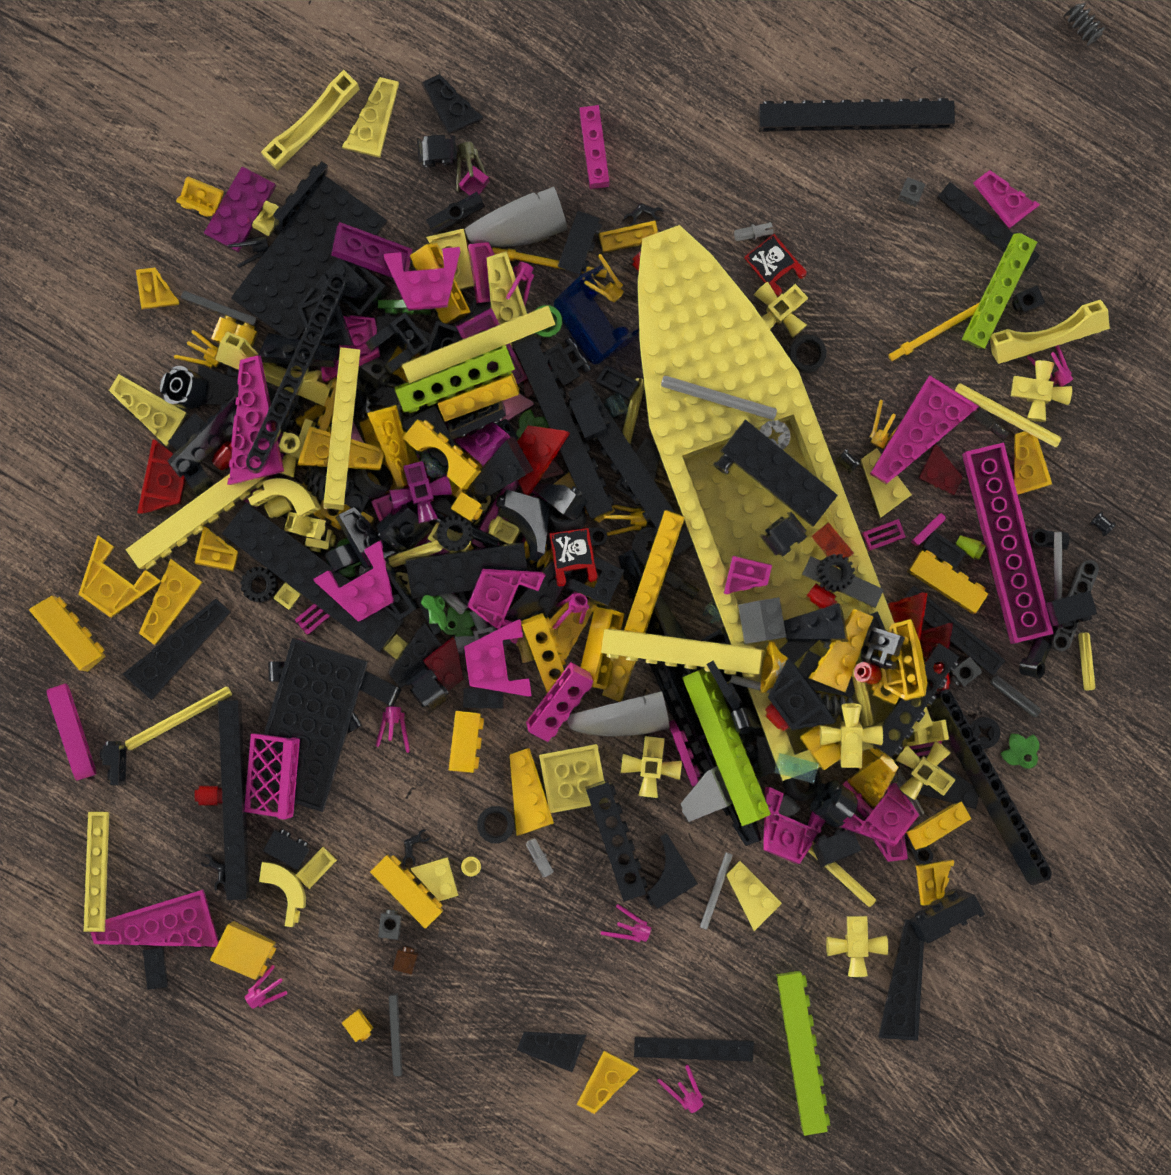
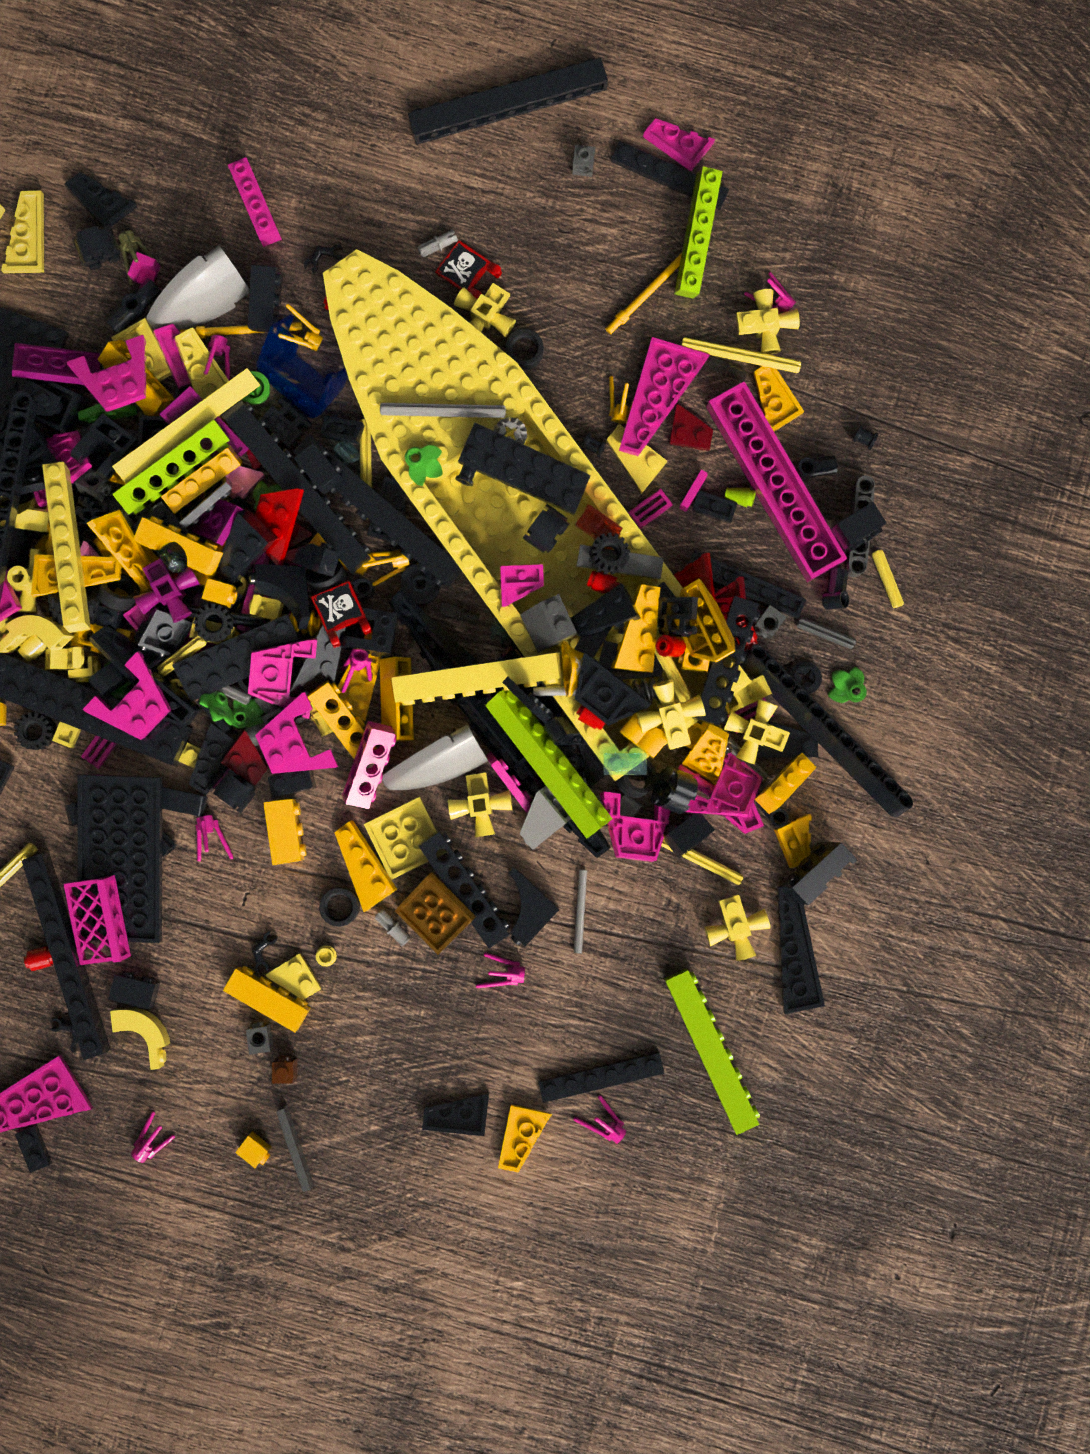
camera: 15 degrees left, 0 degrees up
(243, 951) = (115, 1106): yellow slope -> none
(316, 867) = (169, 1000): light yellow tile -> none
(583, 855) = (435, 913): none -> pearl gold plate
(626, 236) = (308, 285): yellow tile -> none
(646, 598) = (426, 635): yellow plate -> none
(690, 444) = (426, 465): none -> bright green plate
(752, 894) = (618, 905): light yellow wing -> none
(948, 582) = (727, 537): yellow brick -> none
(1035, 297) = (733, 229): black brick -> none
(1057, 565) = (832, 488): light grey bar -> none
(1085, 321) = (794, 239): light yellow arch -> none

